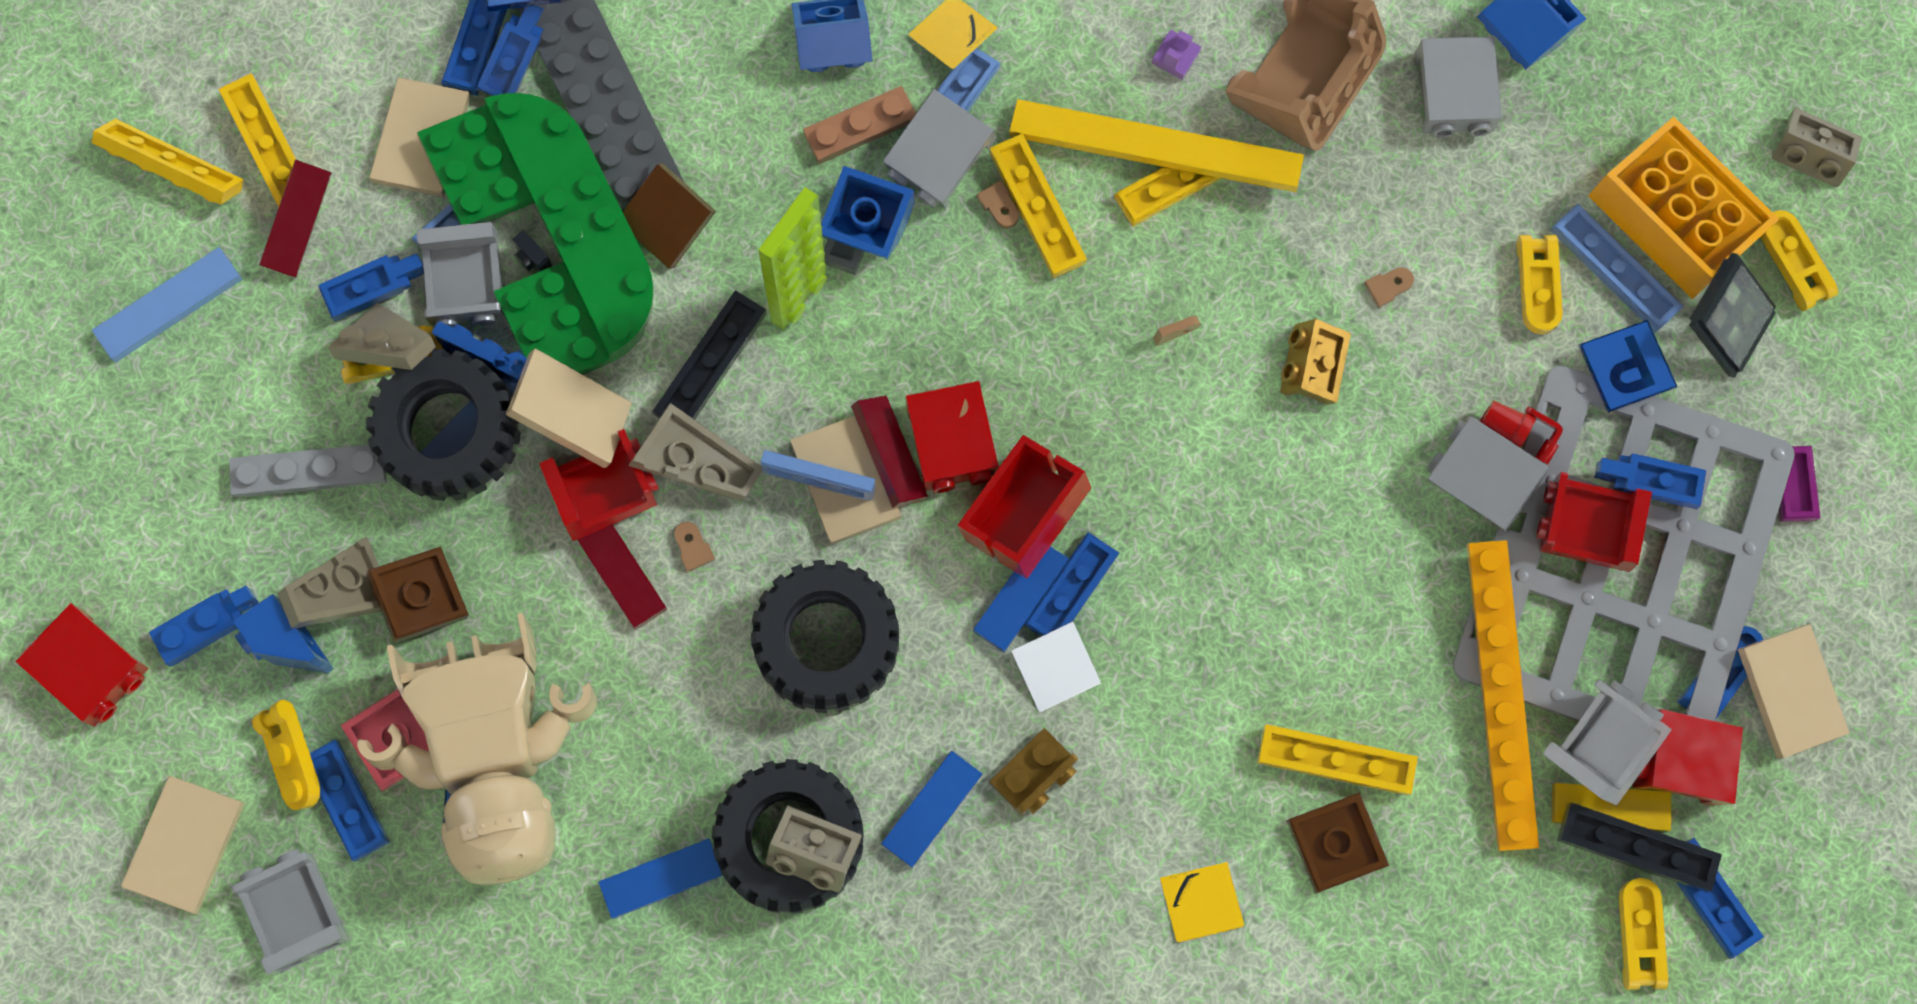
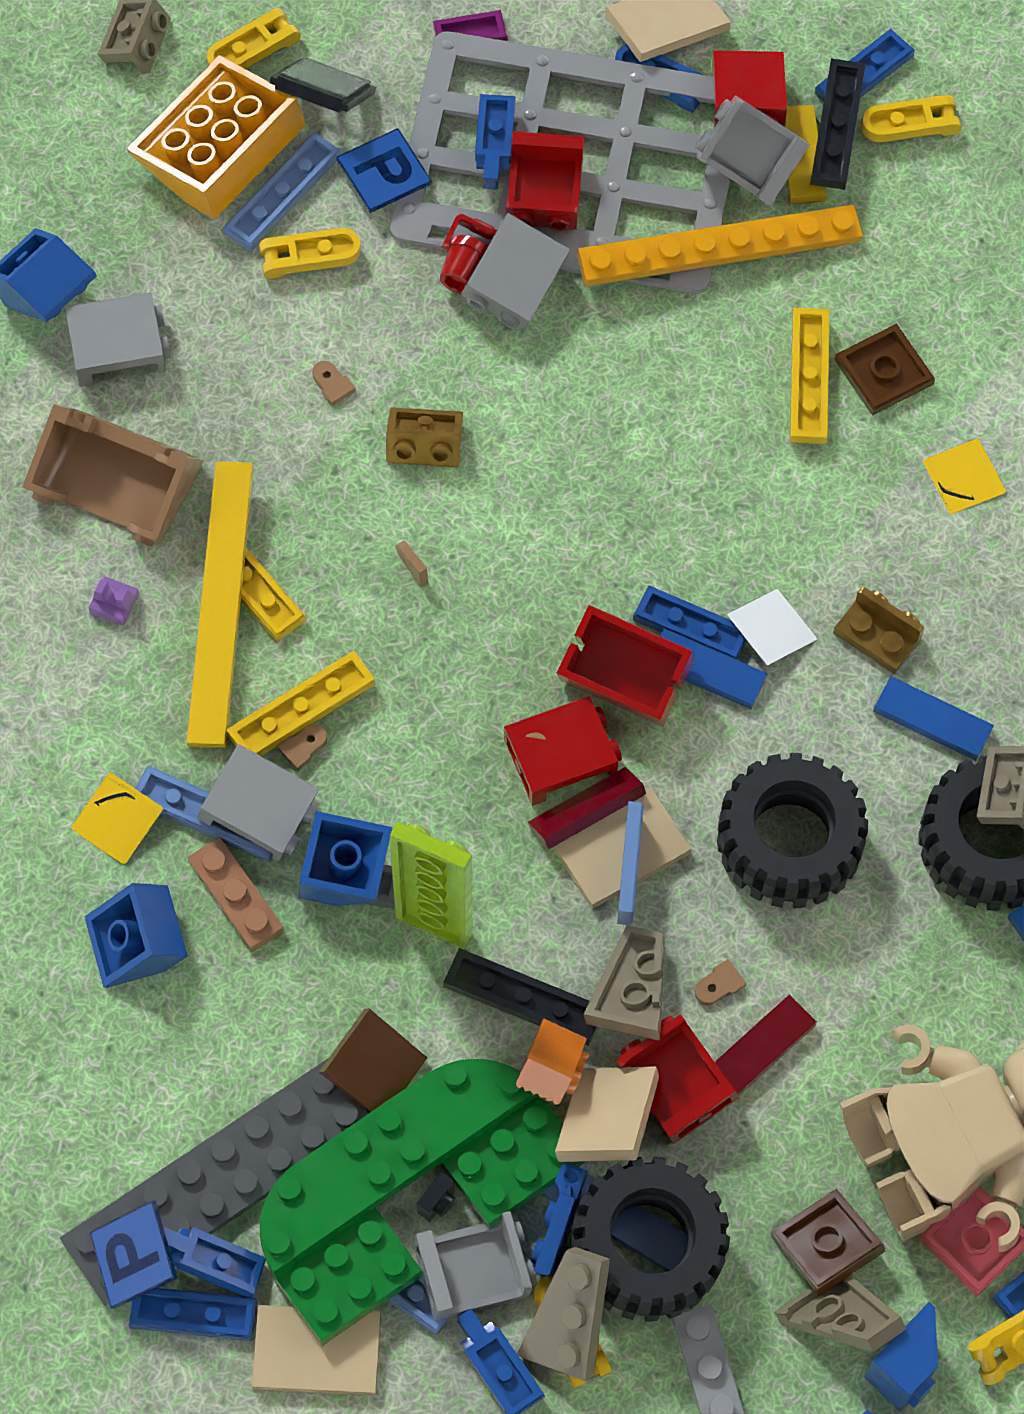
camera: 95 degrees left, 10 degrees down
(631, 367) = (553, 1062): none -> orange brick

